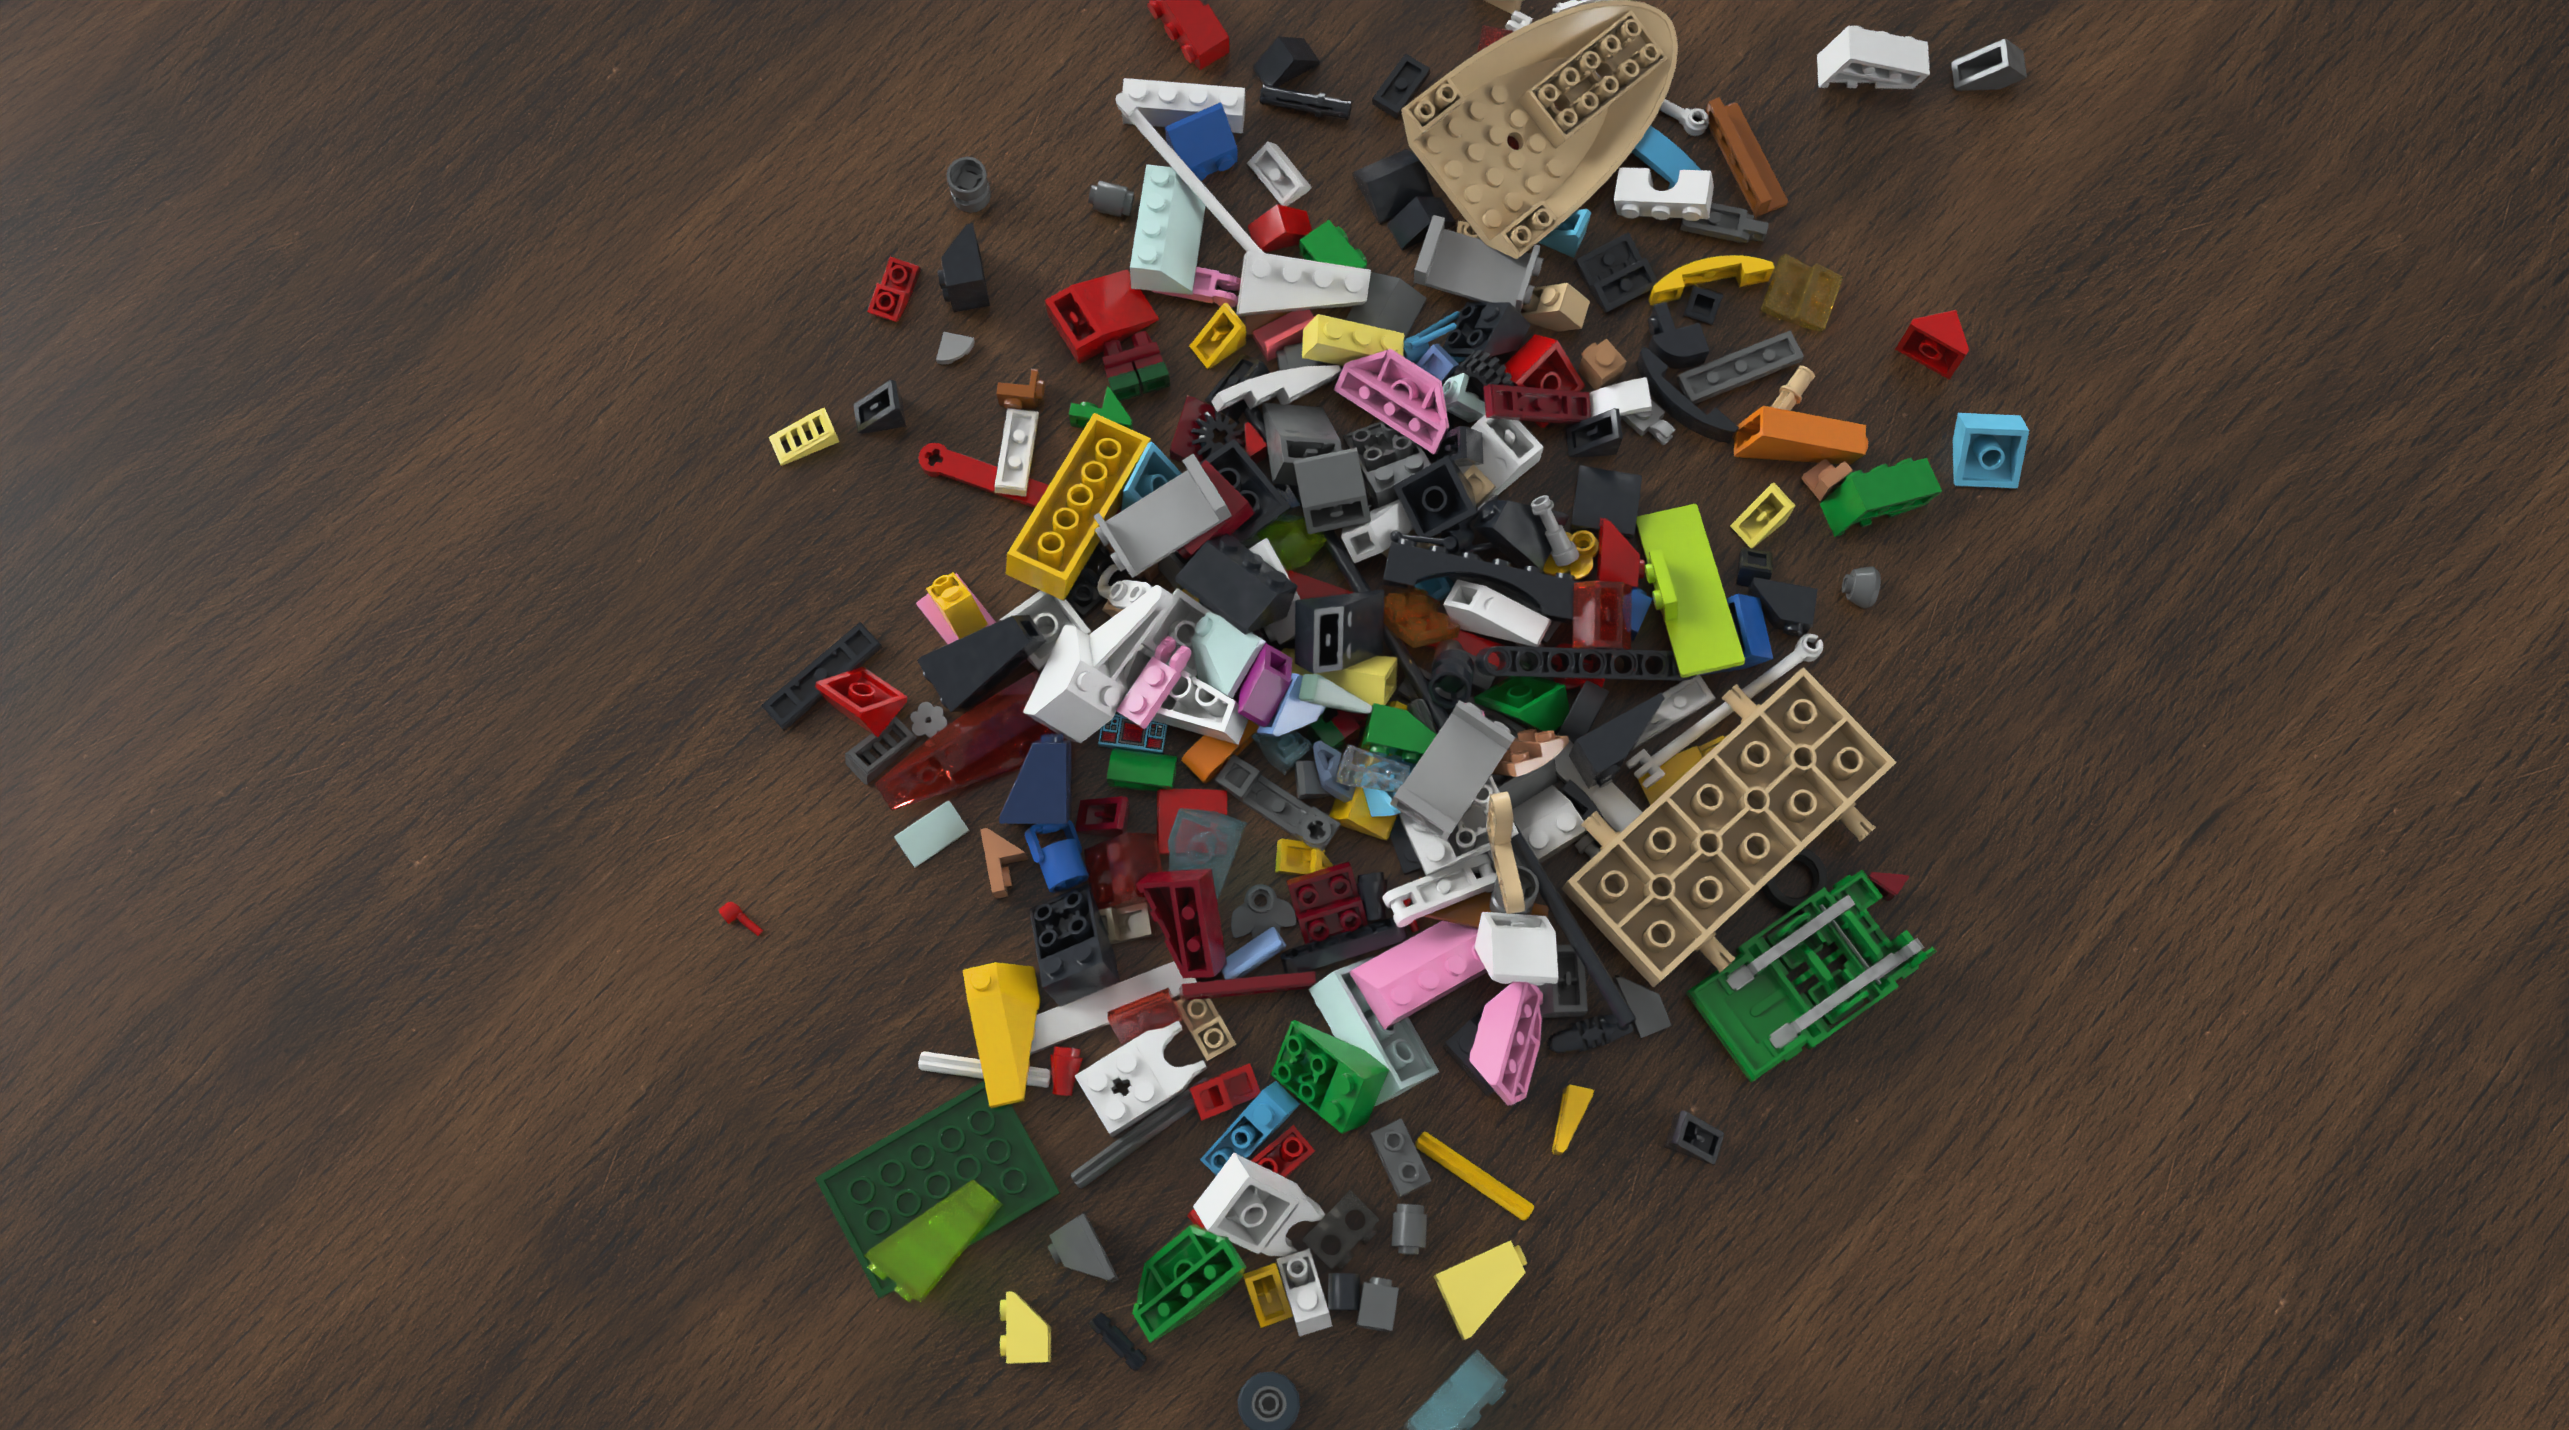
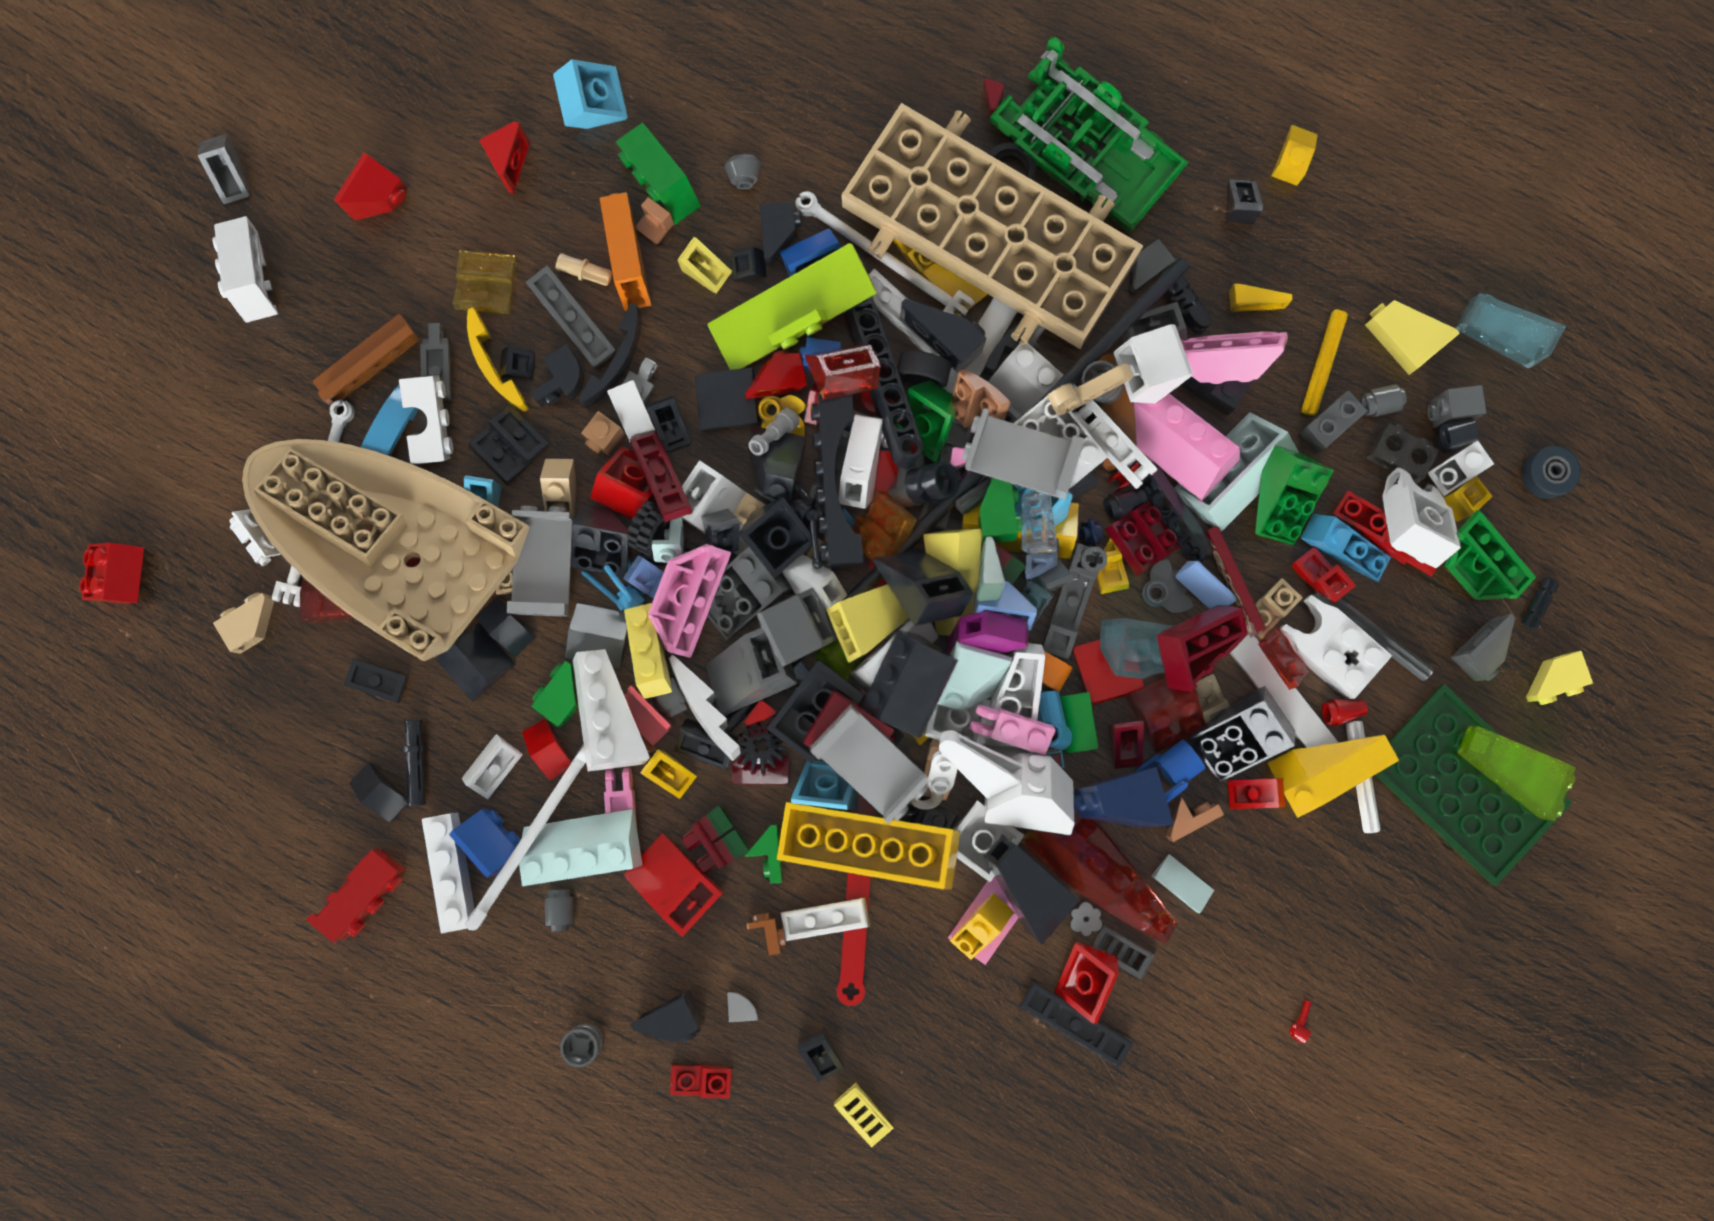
camera: 100 degrees left, 10 degrees up
(1004, 939) = (1256, 793): none -> red slope
(1155, 739) = (1051, 713): none -> dark azure piece
(1318, 562) = (866, 620): none -> light yellow slope
(1348, 846) = (1090, 533): none -> dark blue plate
(1736, 1219) = (1295, 155): none -> yellow slope
(1930, 199) = (370, 190): none -> red slope

